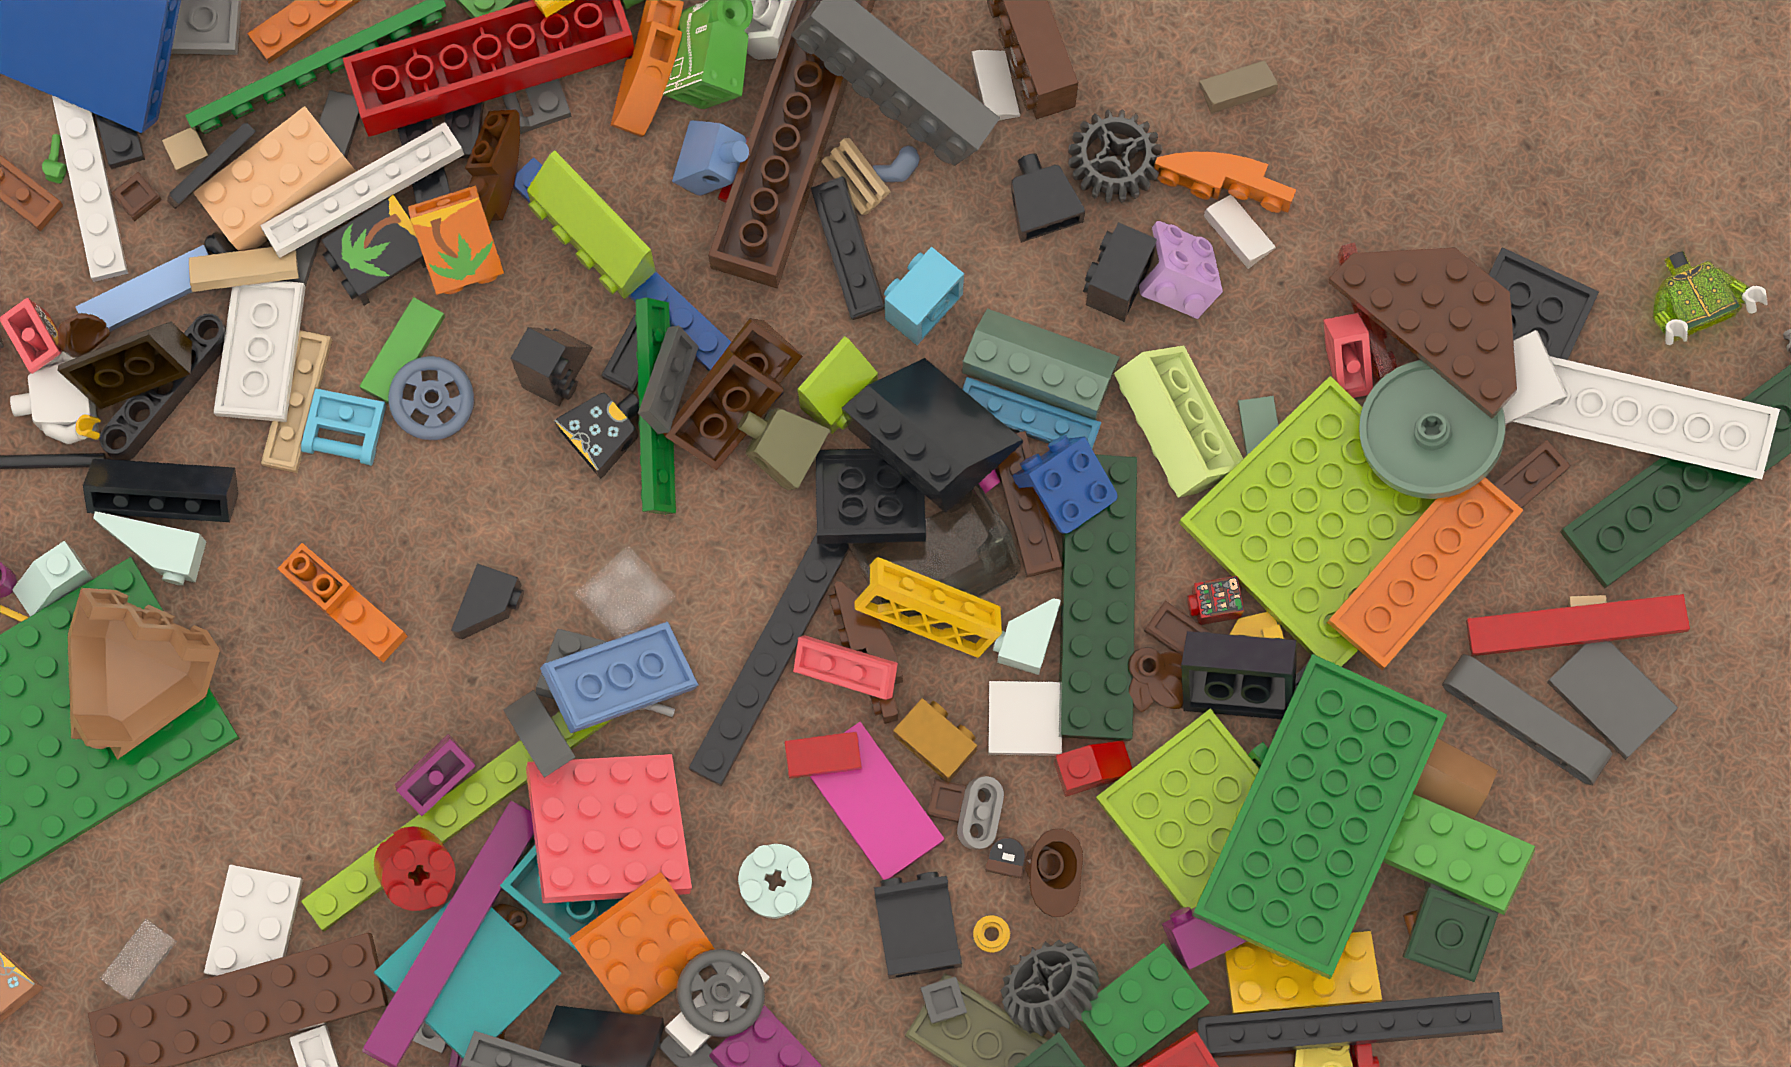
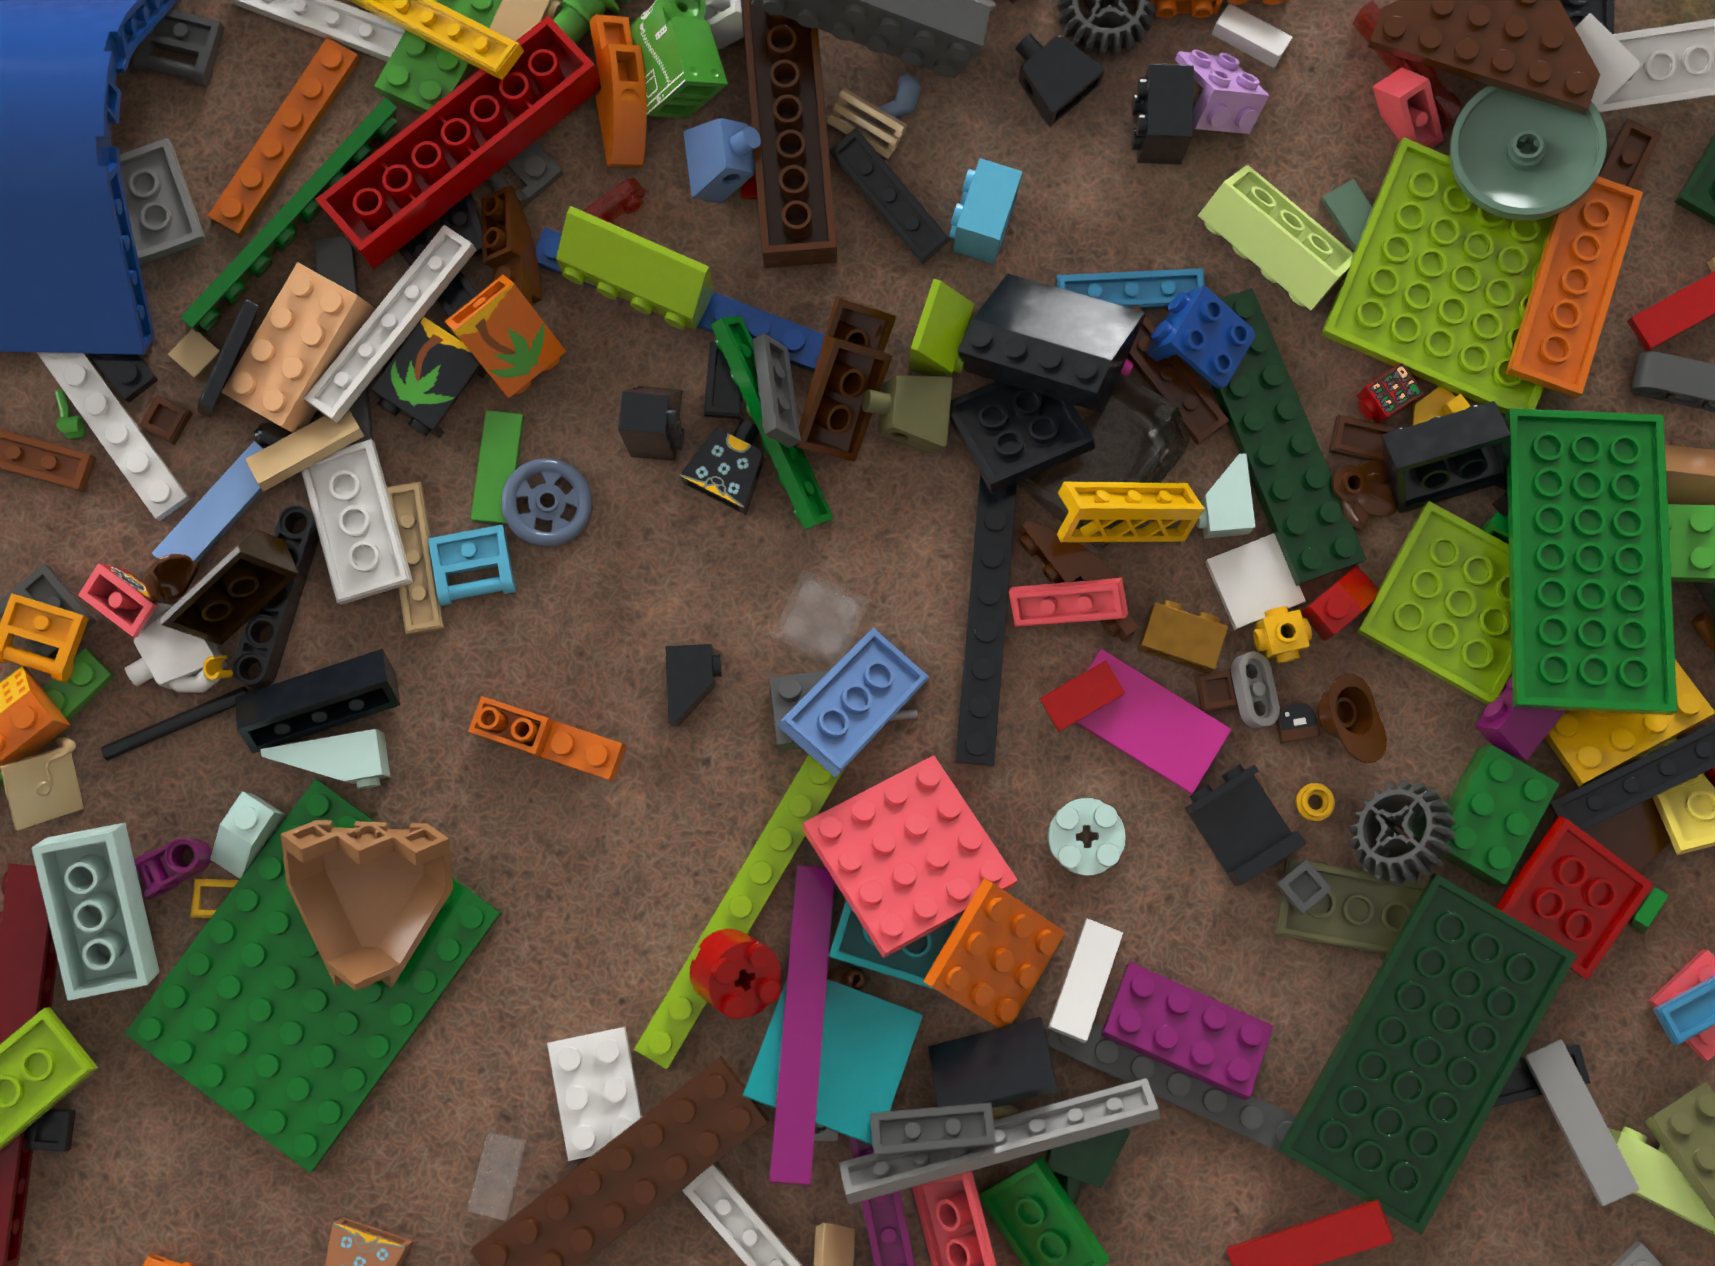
camera: 25 degrees left, 5 degrees up
(435, 775) = (714, 871): magenta brick -> none
(539, 733) = (802, 790): dark grey slope -> none
(609, 159) = (621, 199): none -> clear red plate
(702, 1017) = (1111, 948): dark grey plate -> none
(1021, 786) = (1270, 640): none -> yellow brick
(1039, 364) = (1122, 236): sand green slope -> none

